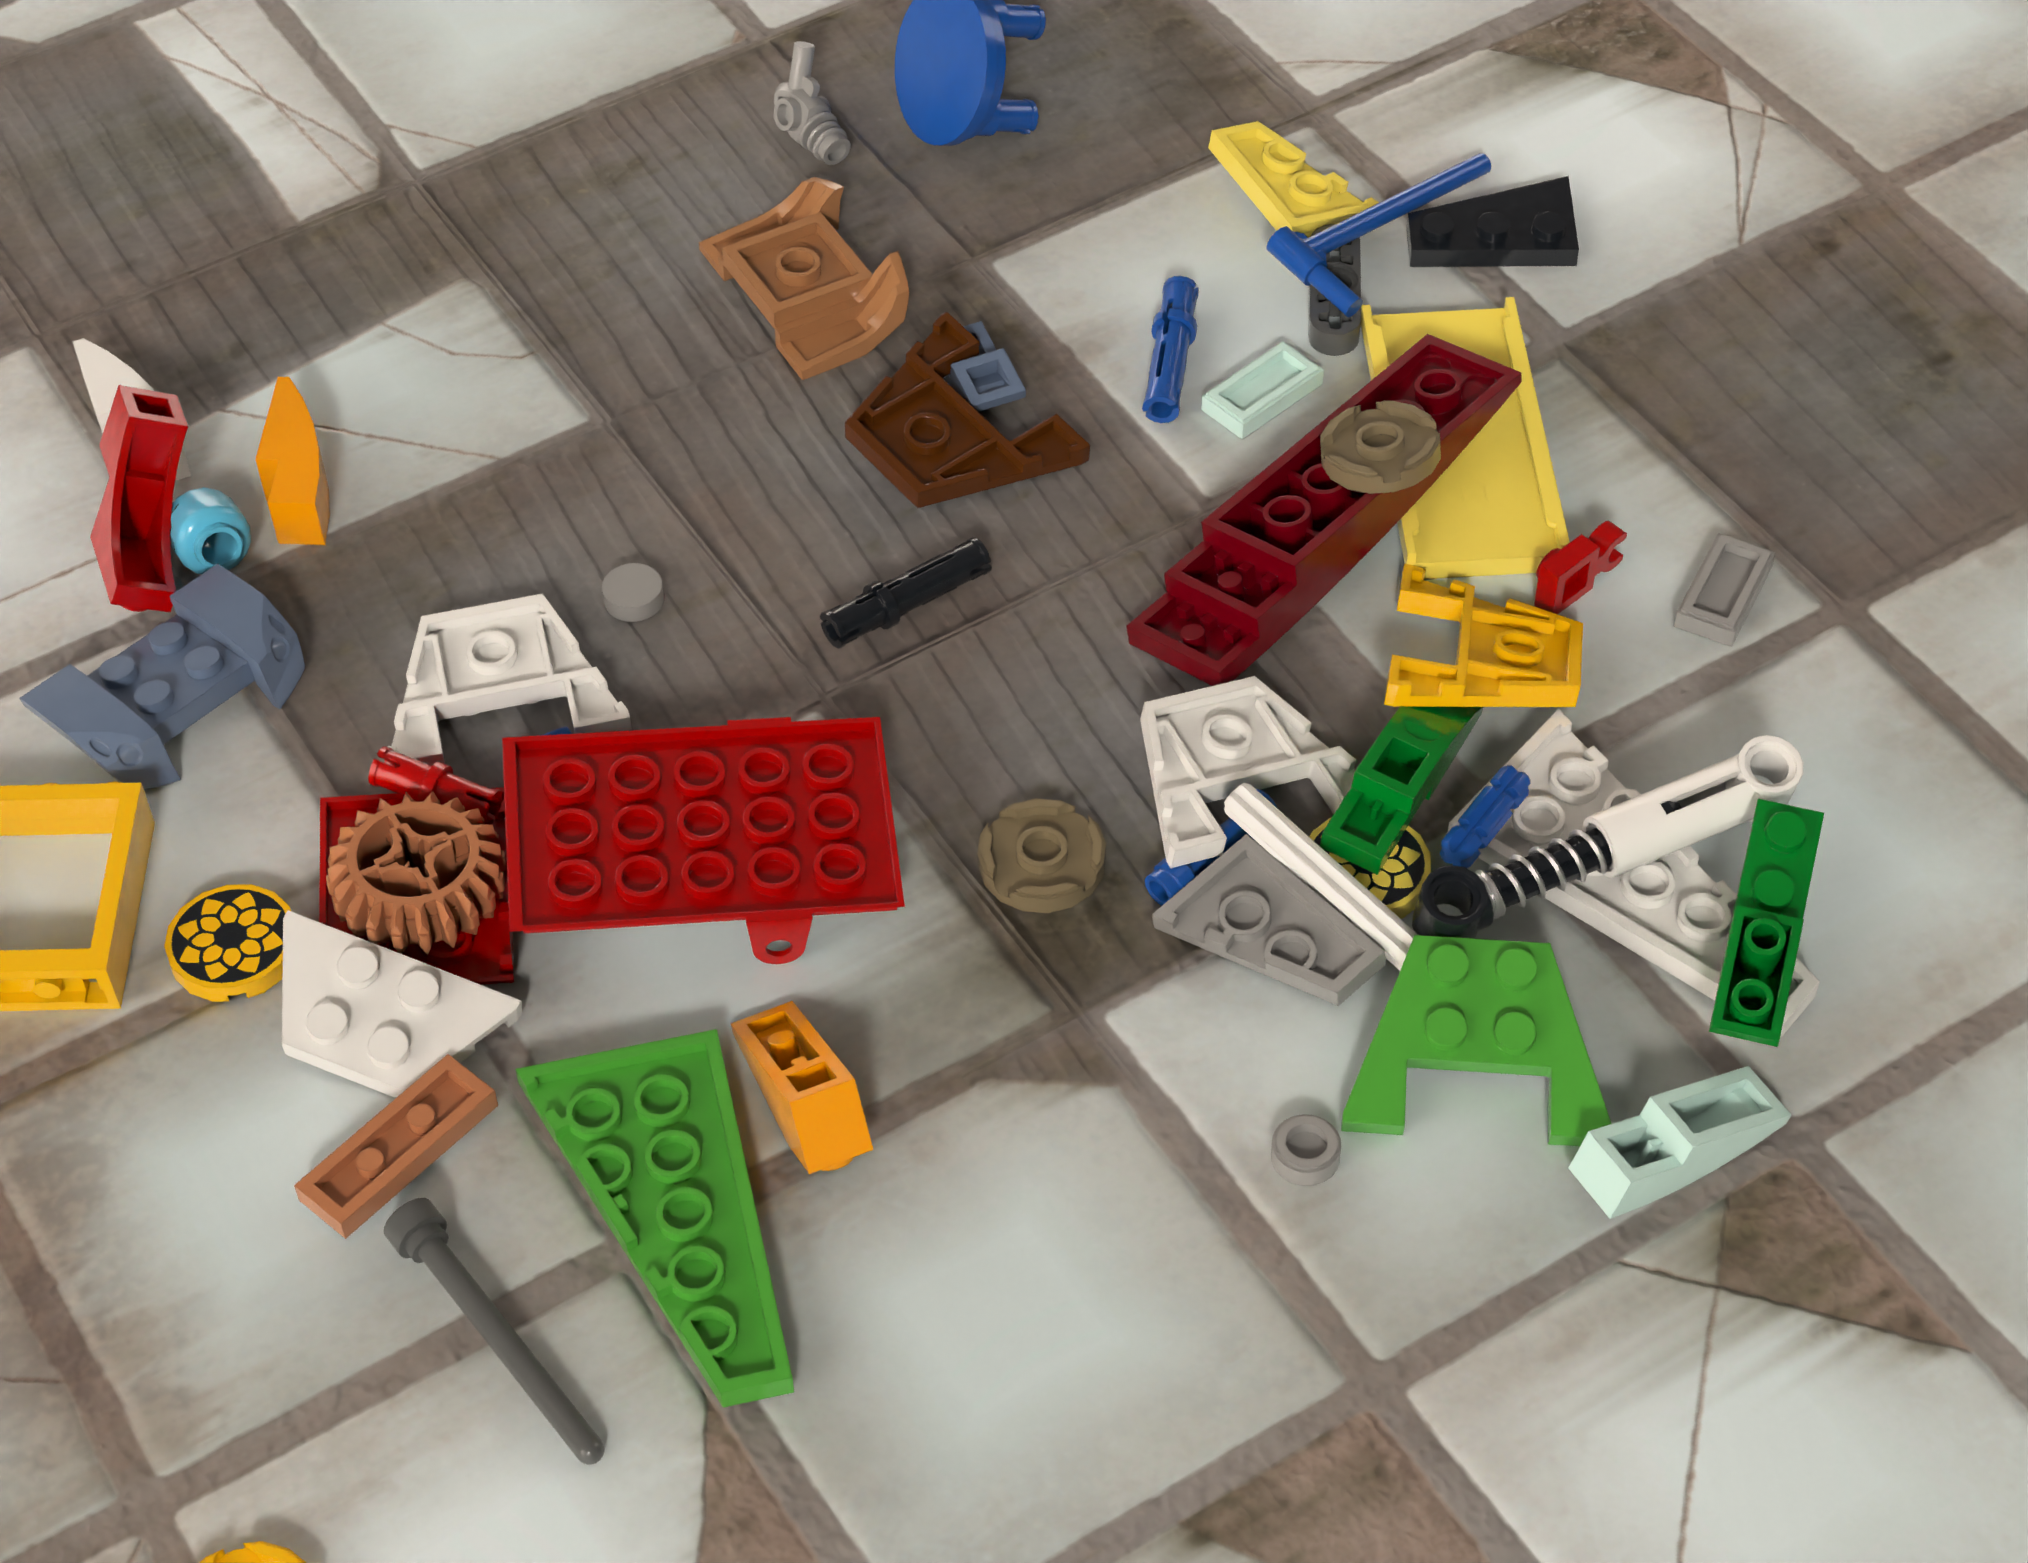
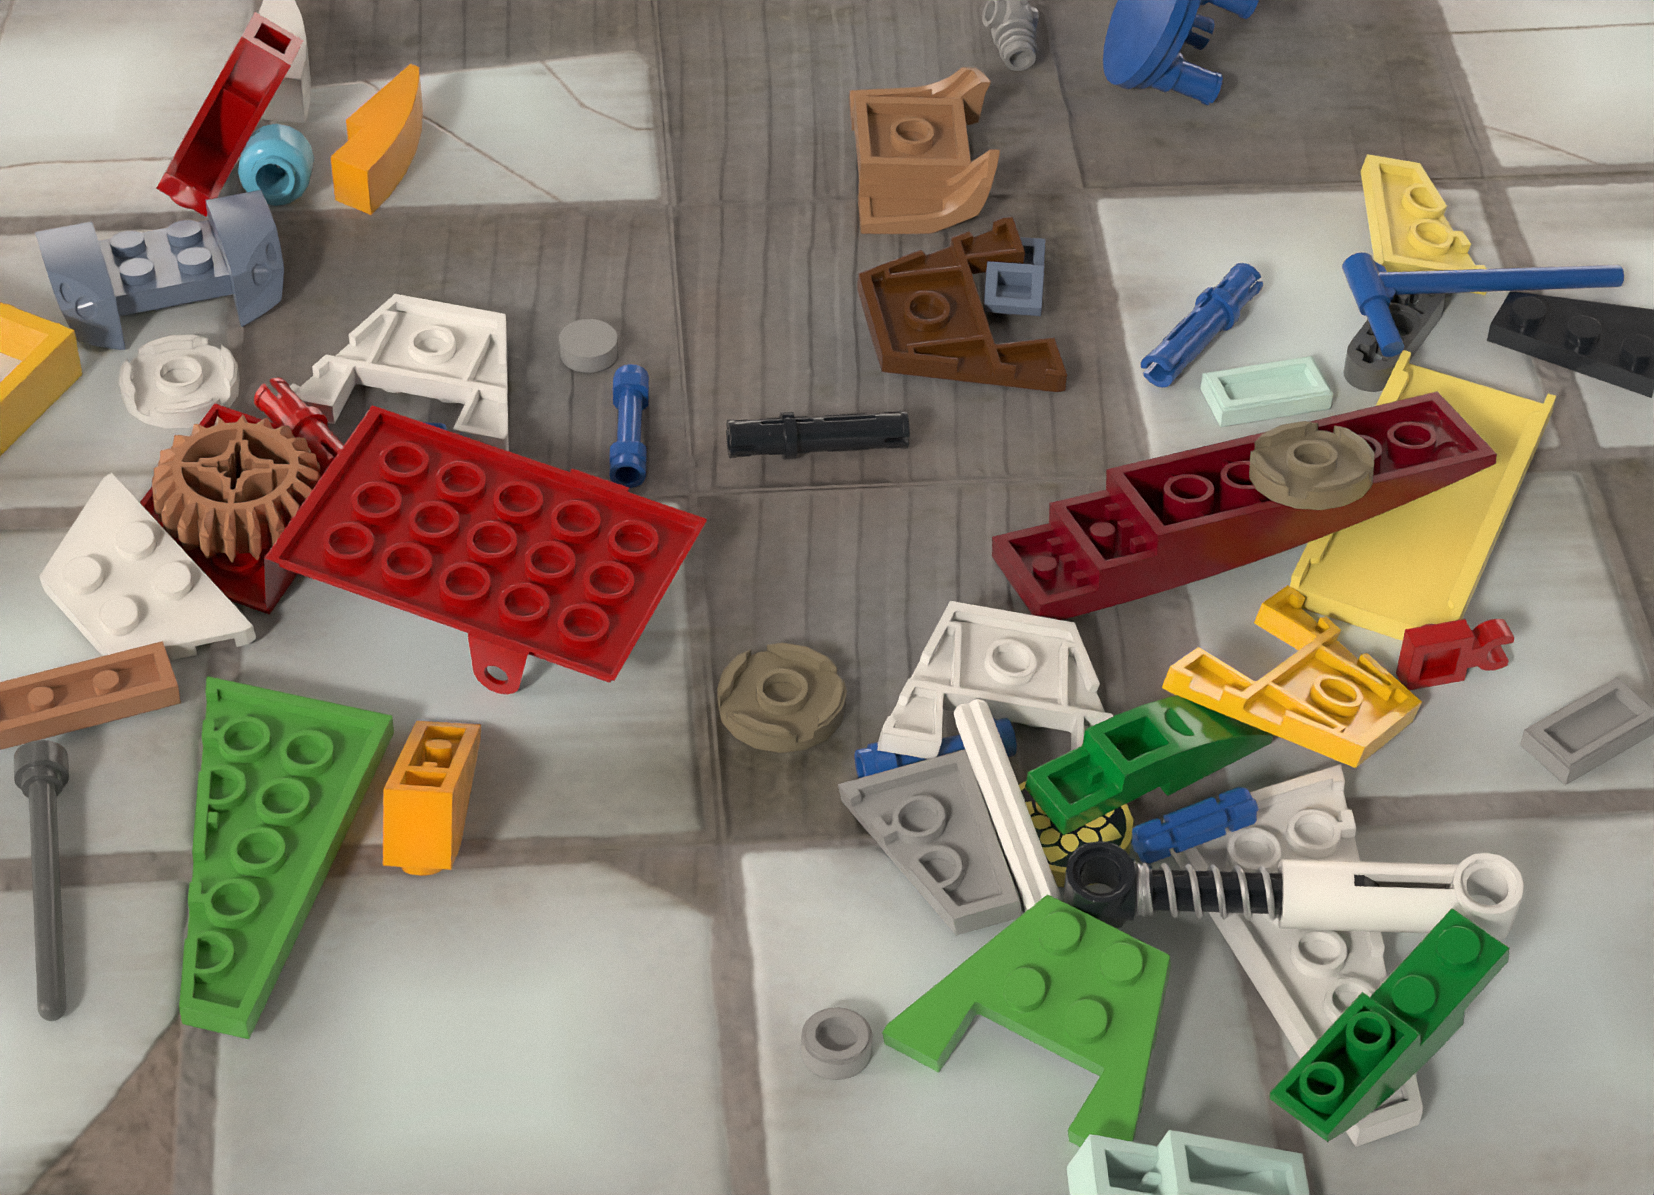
camera: 25 degrees right, 5 degrees down
(228, 942) = (57, 480): yellow tile -> none
(262, 790) = (178, 381): none -> white tile
(748, 686) = (628, 454): none -> blue bar

